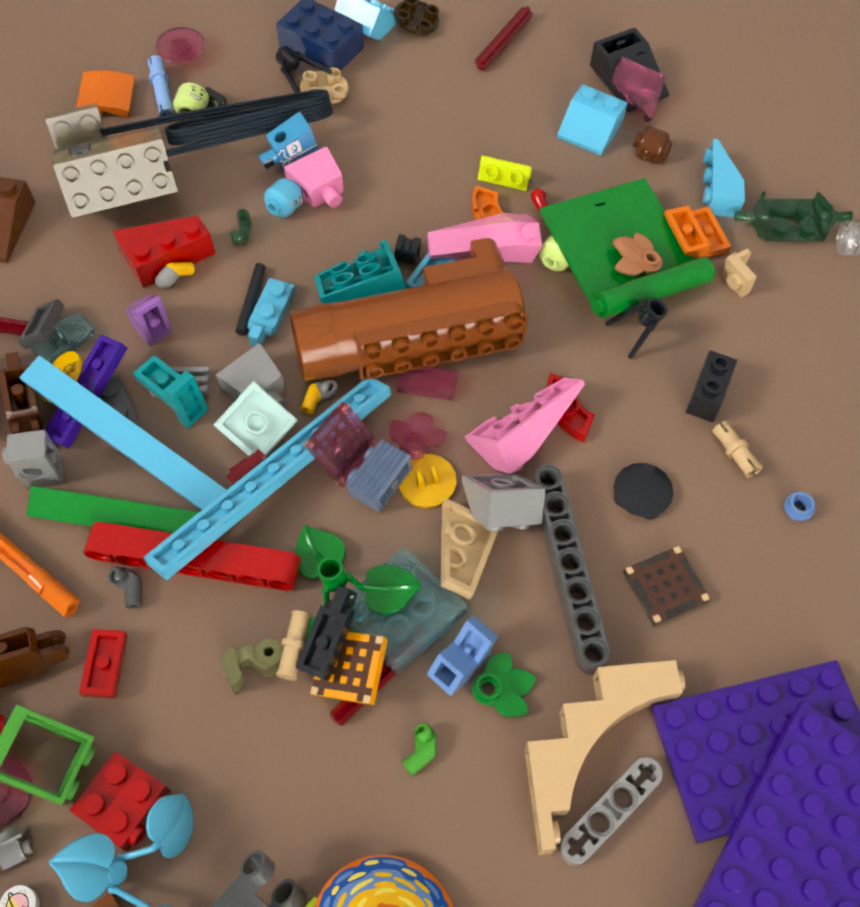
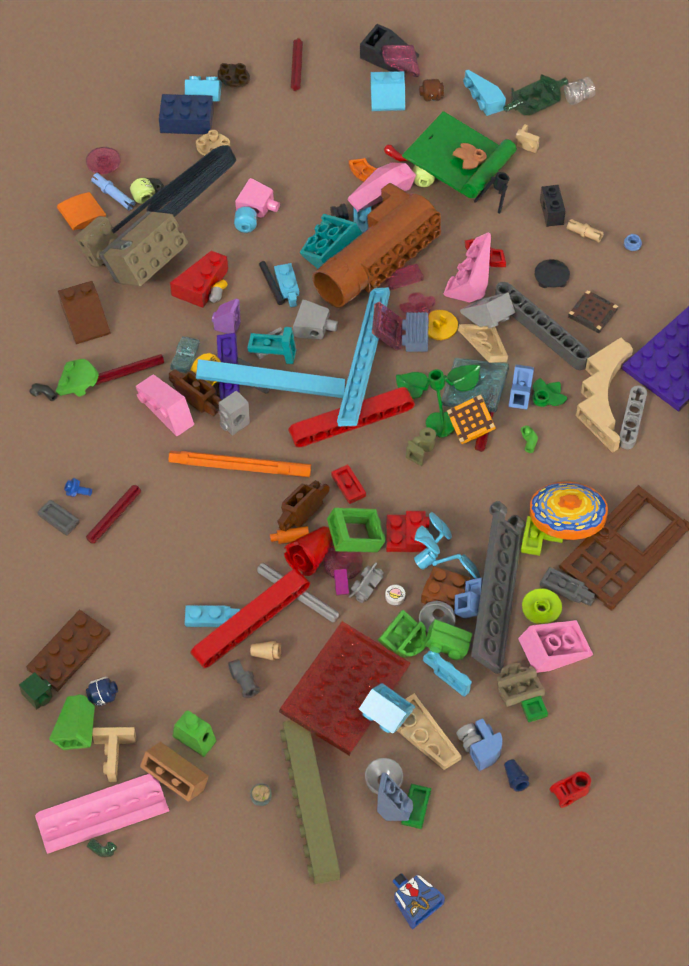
camera: 30 degrees left, 5 degrees down
(41, 324) = (169, 351): dark grey tile -> none
(88, 508) = (280, 423): green tile -> none
(128, 582) = (328, 445): dark grey arm -> none
(244, 222) = (237, 250): clear green arm -> none
(245, 466) = (345, 363): dark red cone -> none
(255, 421) = (333, 339): light aqua tile -> none
(289, 142) = (228, 187): dark azure torso -> none
(290, 61) = (180, 138): black plant -> none
(293, 645) = (438, 424): tan pin -> none
(318, 392) = (349, 311): arm -> none
(328, 634) = (453, 409): black hinge -> none
(504, 173) = (360, 145): neon yellow hinge -> none
(697, 231) = (490, 127): orange slope -> none

